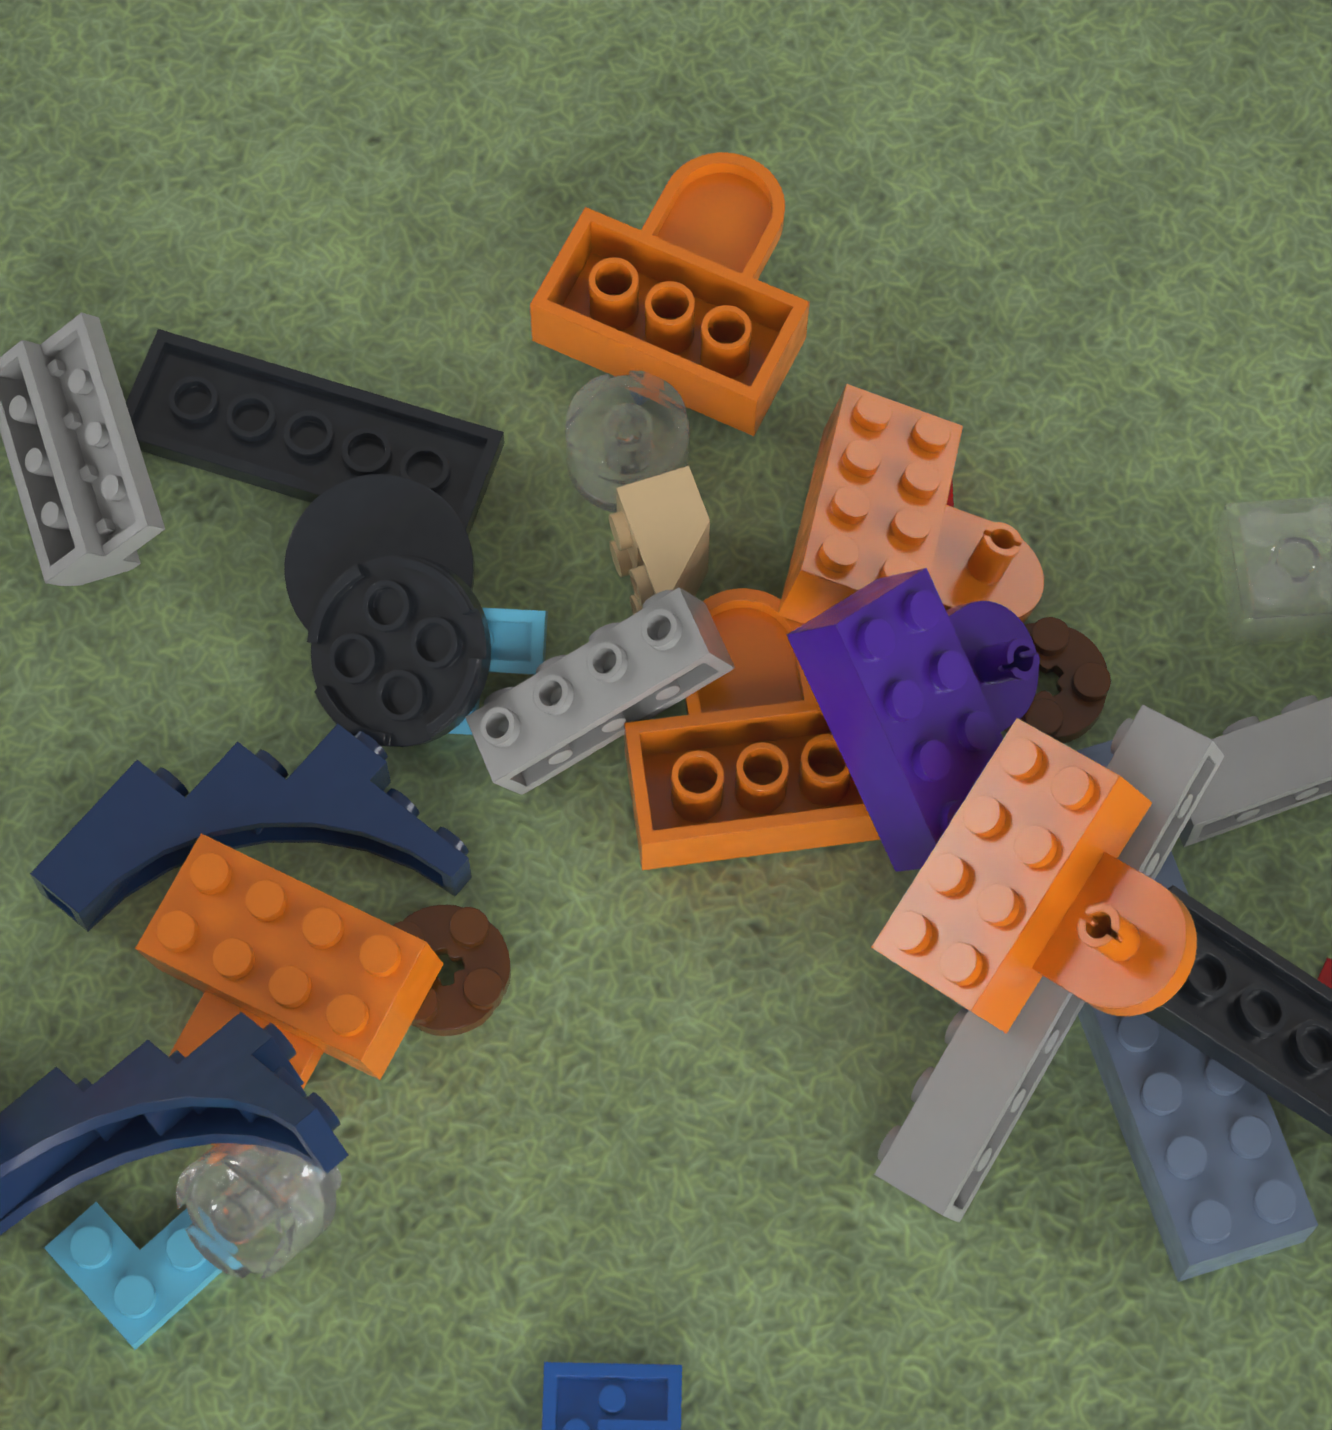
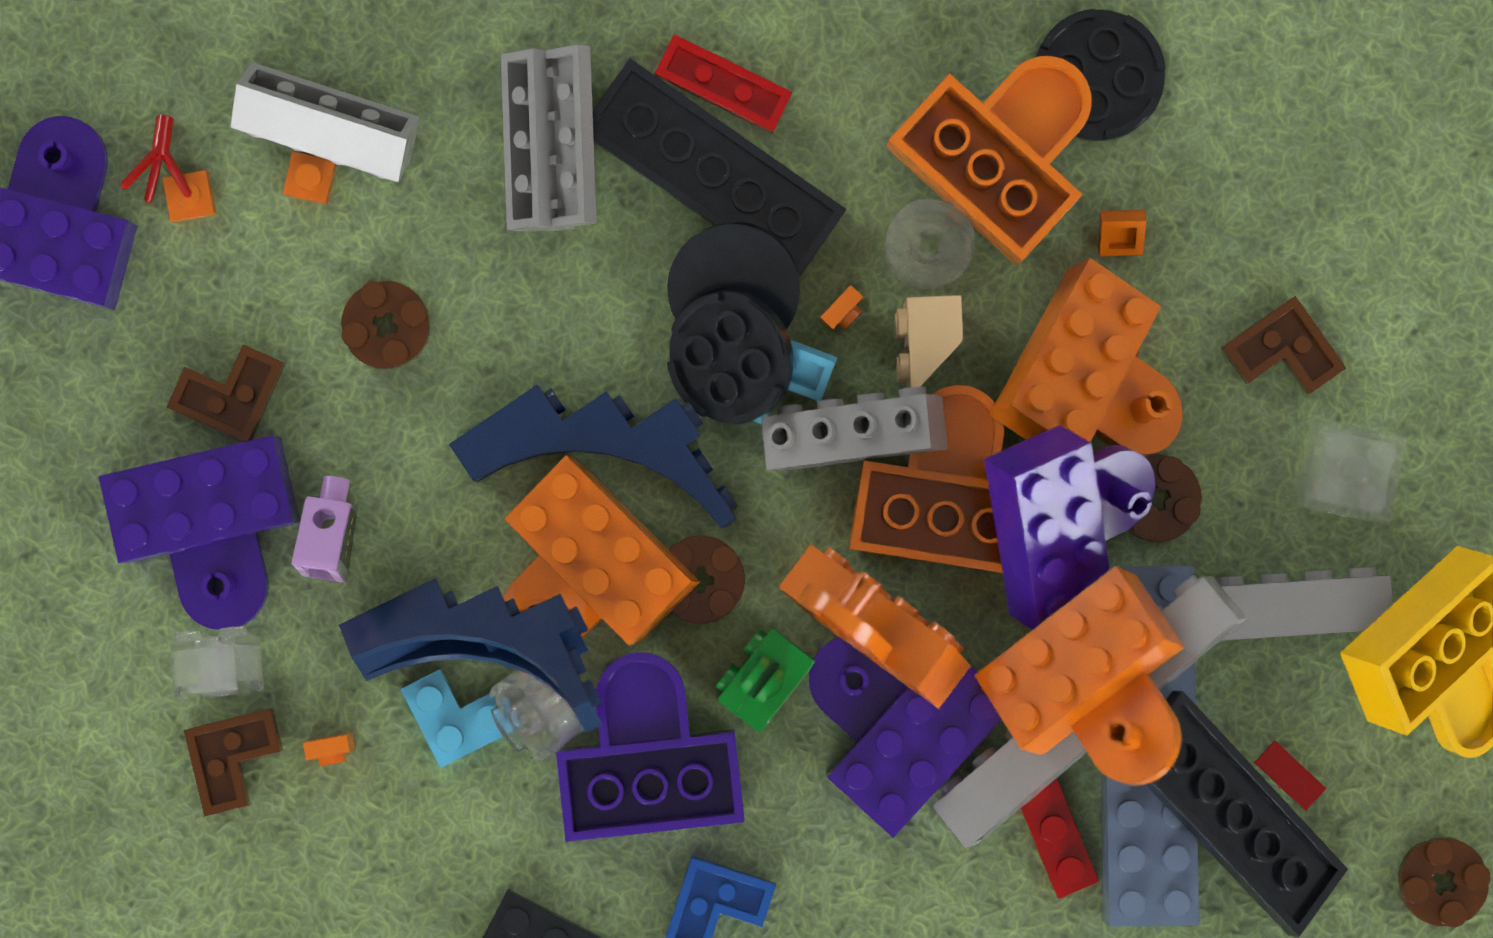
camera: 15 degrees right, 20 degrees up
(295, 330) = (723, 84): none -> red plate
(440, 1237) = (647, 764): none -> dark purple brick
(537, 558) = (843, 310): none -> orange plate
(574, 1062) = (764, 678): none -> green brick
(709, 928) = (876, 623): none -> orange brick
(793, 1084) = (900, 739): none -> dark purple brick
(822, 186) = (1119, 64): none -> black tile
(881, 362) = (1121, 232): none -> orange plate
(1072, 1183) = (1058, 841): none -> red plate
(1145, 431) = (1286, 336): none -> reddish brown plate

